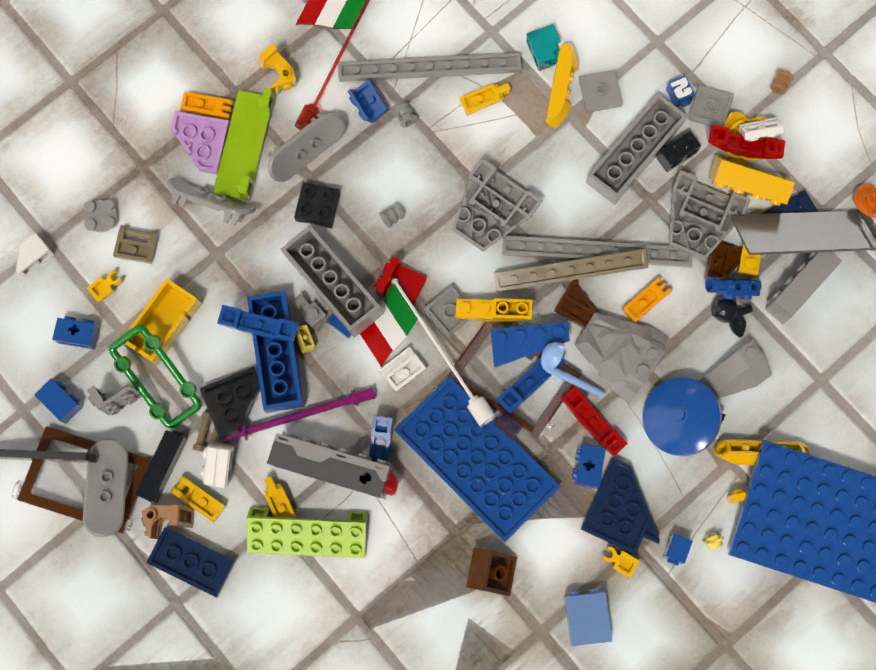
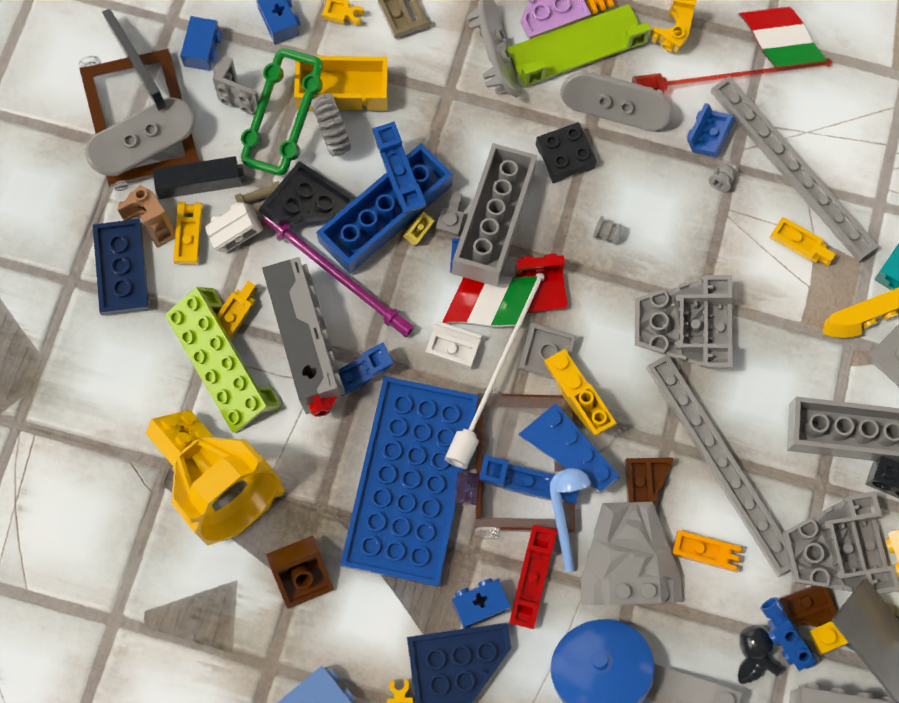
camera: 50 degrees right, 5 degrees down
(190, 349) = (331, 124): none -> light grey gear
(395, 589) = (206, 469): none -> yellow plate
(571, 270) = (682, 449): dark tan plate -> none

